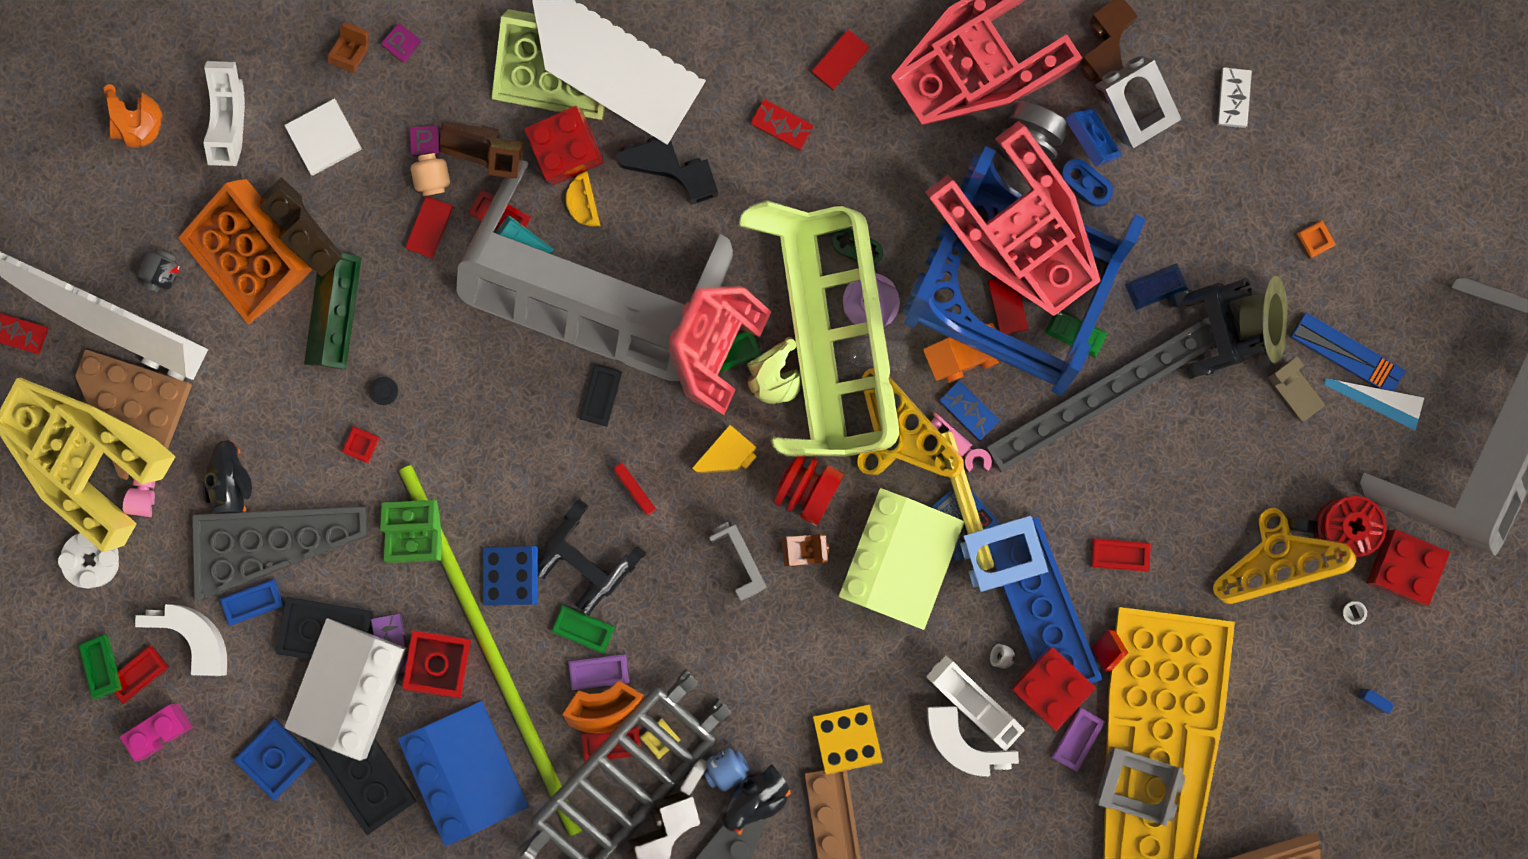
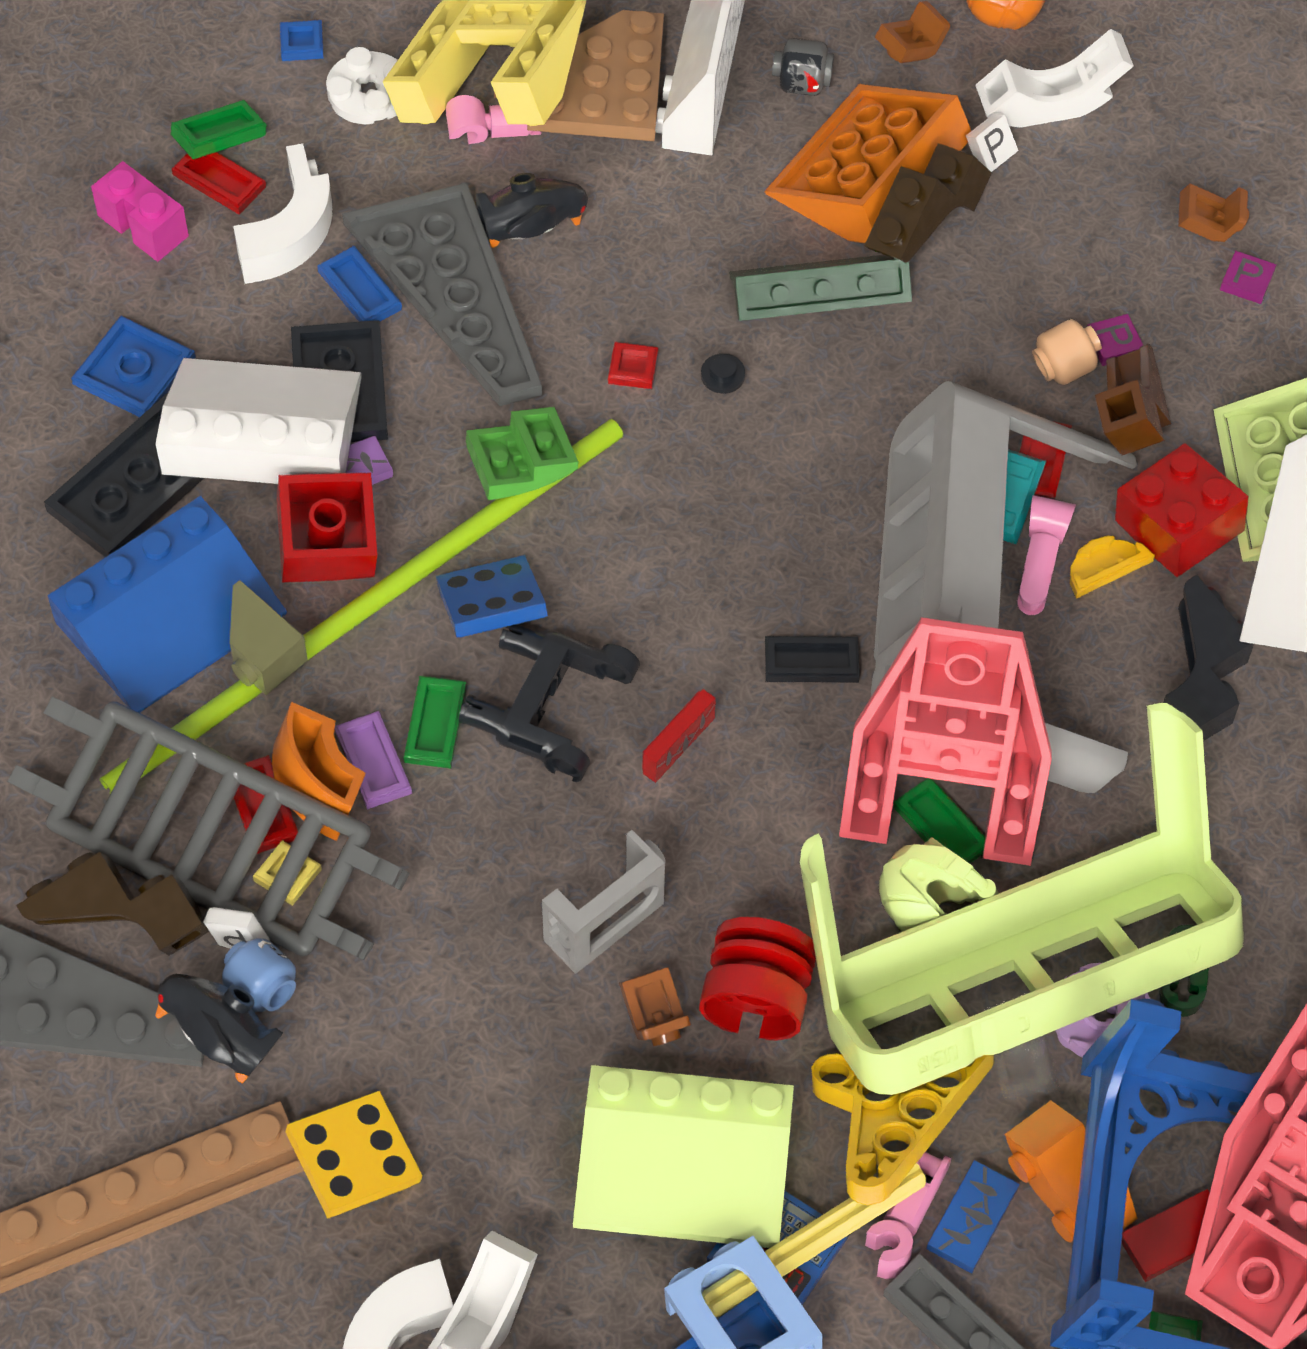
camera: 70 degrees right, 25 degrees down
(36, 595) = (301, 40): none -> blue tile
(152, 191) = (916, 37): none -> dark orange bracket
(255, 168) = (992, 141): none -> white tile
(323, 137) = (1070, 216): white tile -> none
(429, 227) = (991, 373): red tile -> none
(510, 723) = (262, 642): none -> olive slope
(550, 226) = (1047, 530): none -> bright pink piece
(727, 454) = (771, 850): yellow slope -> none

